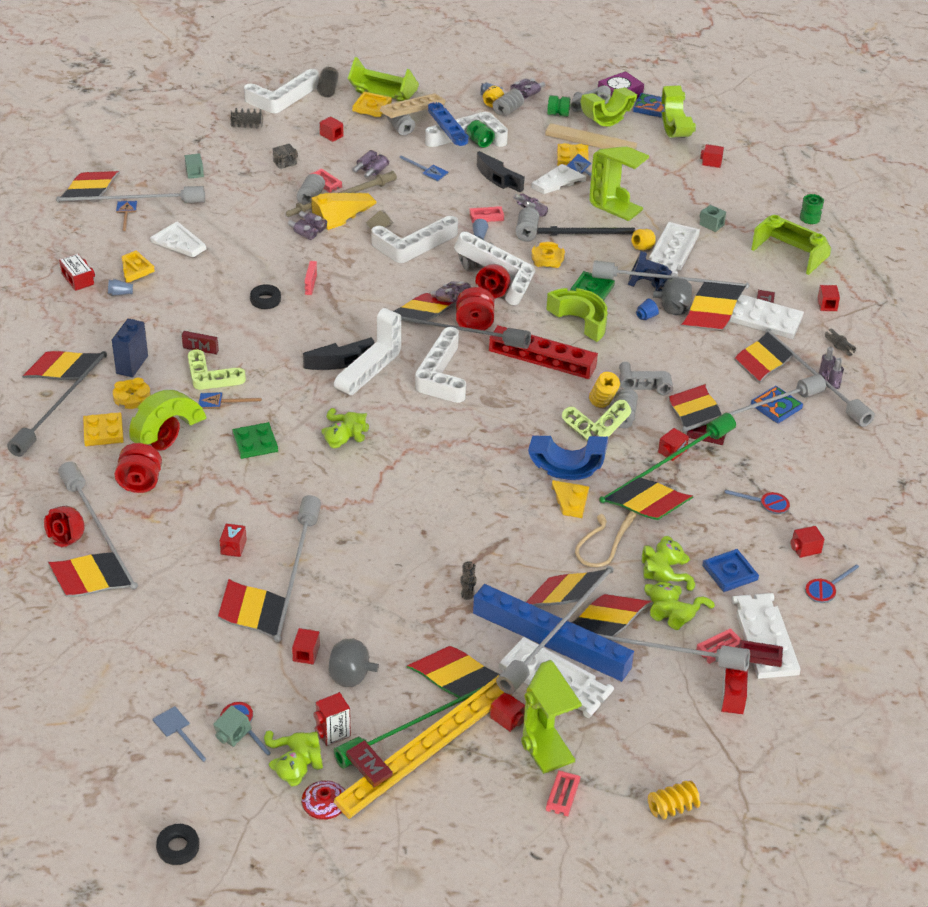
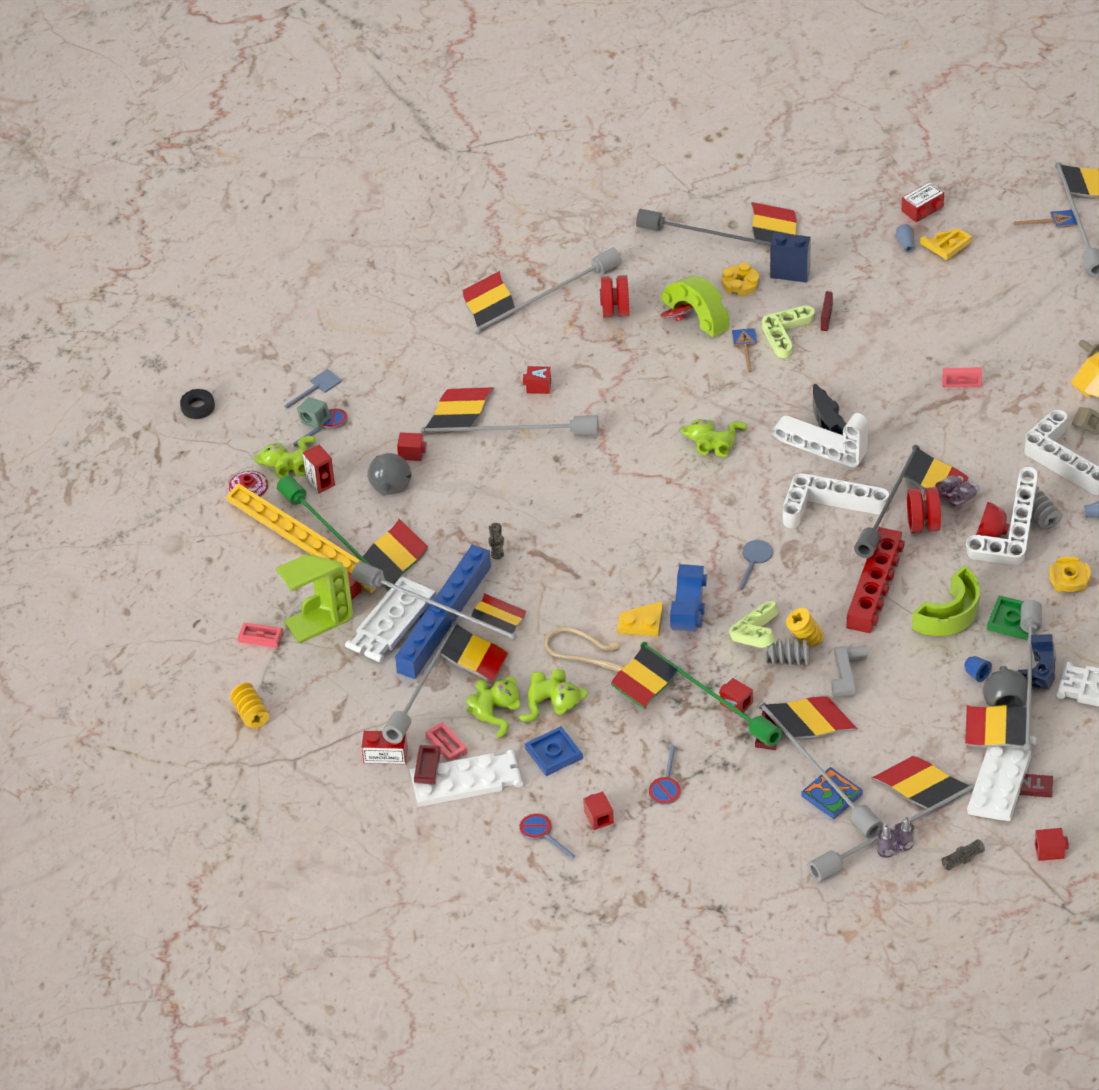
camera: 90 degrees right, 5 degrees up
(64, 525) = (538, 268): red cylinder -> none
(103, 429) = (682, 266): yellow plate -> none
(179, 239) = (1006, 266): white wing -> none
(255, 440) = (687, 376): green plate -> none
(265, 303) = (923, 357): black tyre -> none
(309, 226) = (1064, 364): clear purple piece -> none
(369, 763) = (270, 496): dark red tile -> none
(494, 420) = (755, 552): none -> sand blue piece

